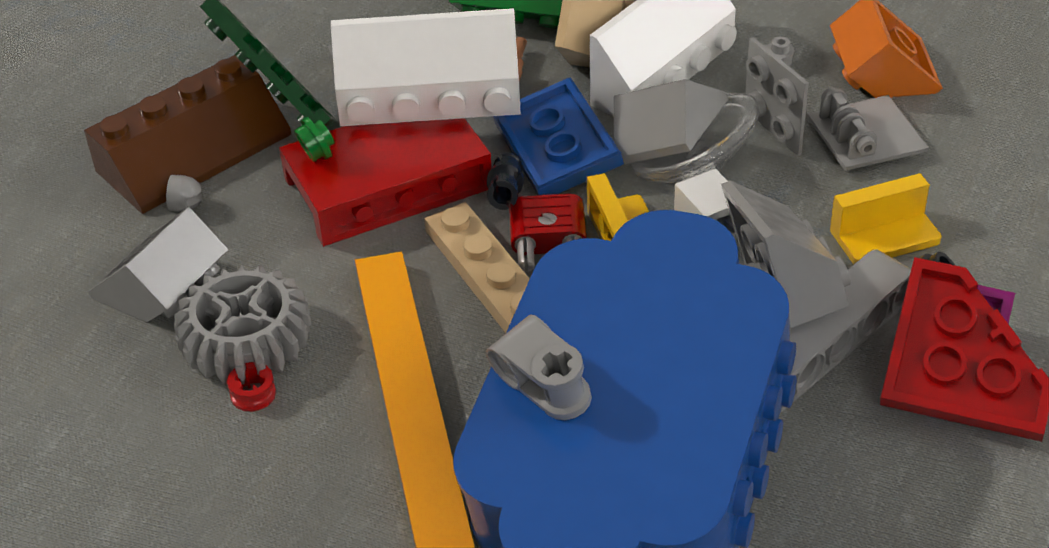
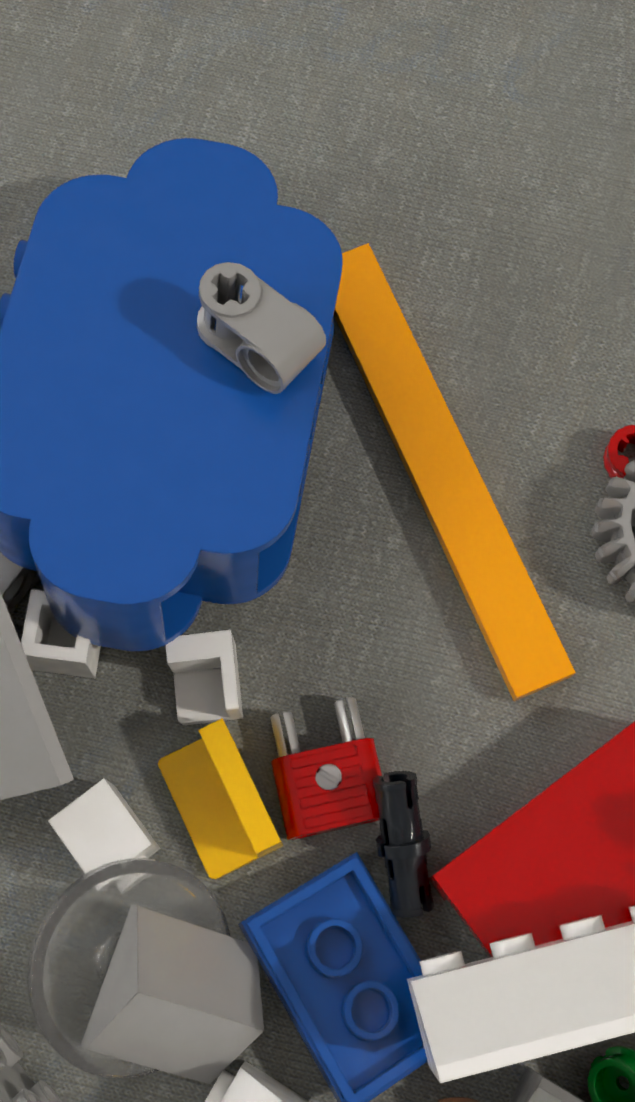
camera: 170 degrees right, 30 degrees up
(479, 260) = (393, 693): tan plate -> none

